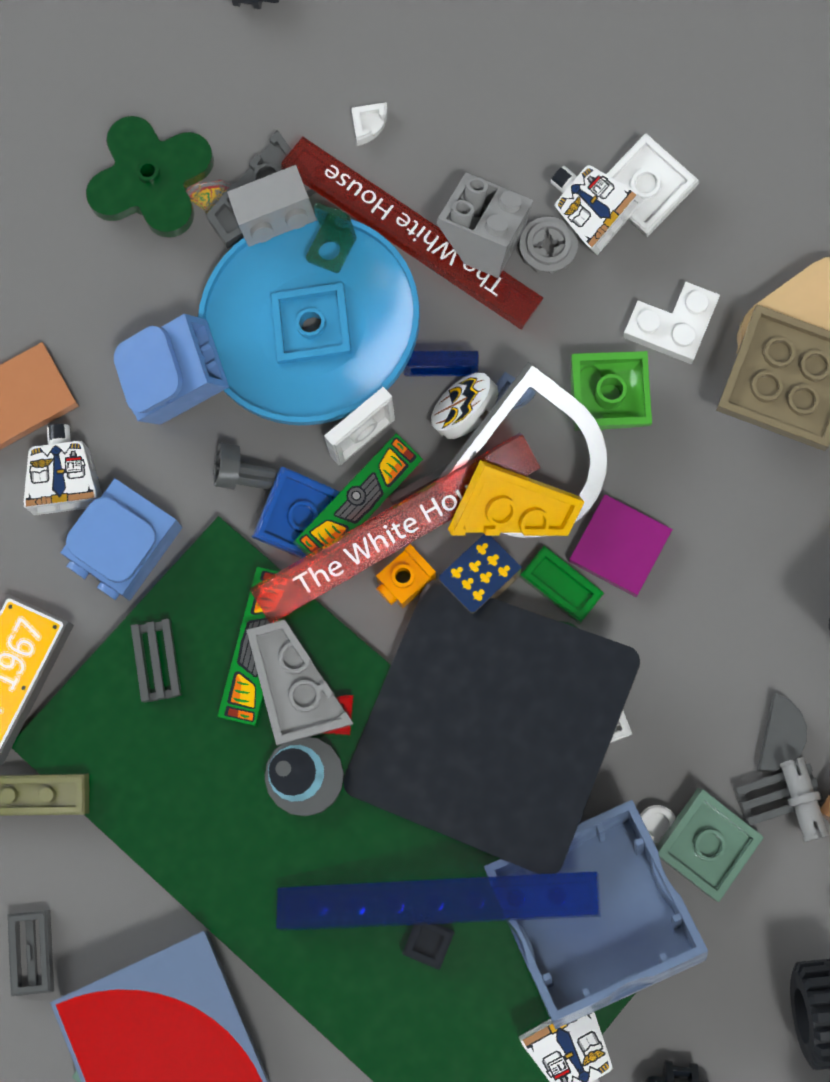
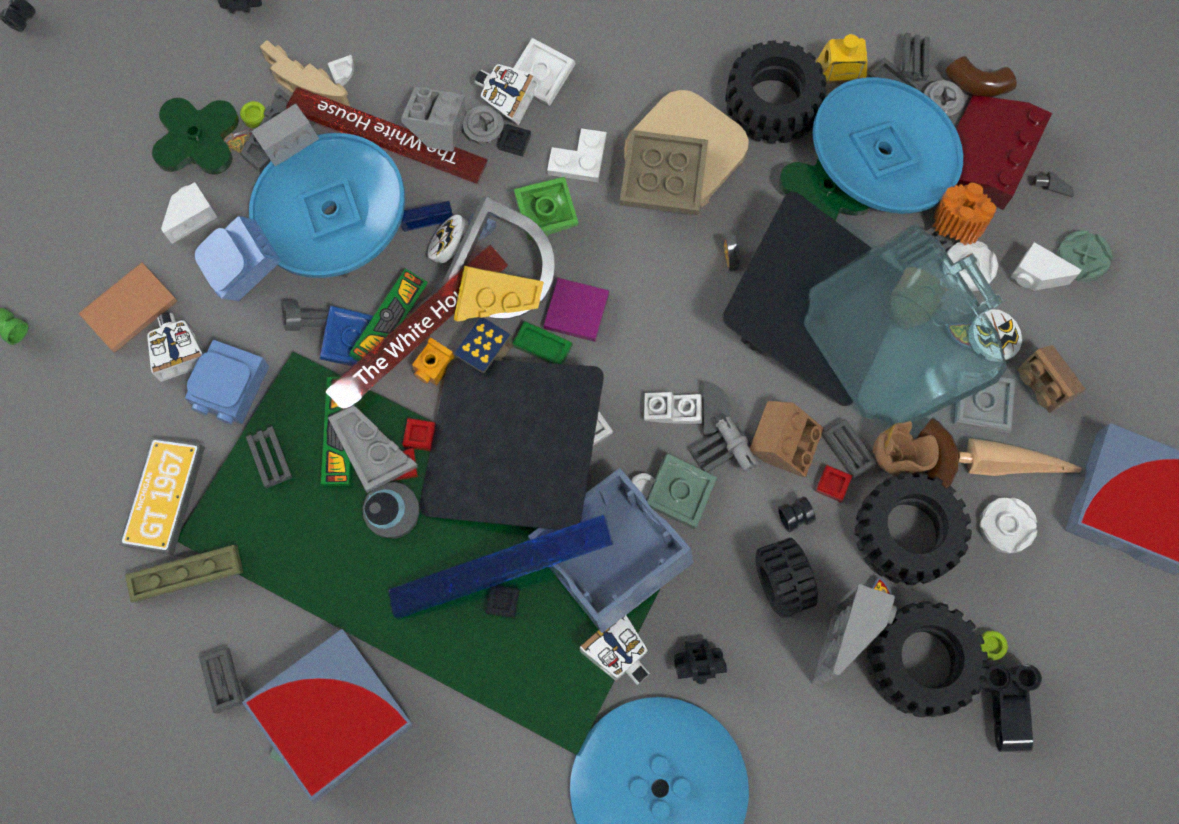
camera: 20 degrees left, 5 degrees down
(116, 285) = (186, 213): none -> white slope
(234, 160) = (252, 114): none -> lime tile
(302, 119) = (293, 75): none -> tan slope
(336, 228) = (332, 140): clear green bracket -> none
(360, 426) = (379, 267): white plate -> none
(364, 677) = (419, 434): none -> red tile
(587, 277) = (514, 140): none -> black tile
(724, 721) = (672, 408): none -> white slope

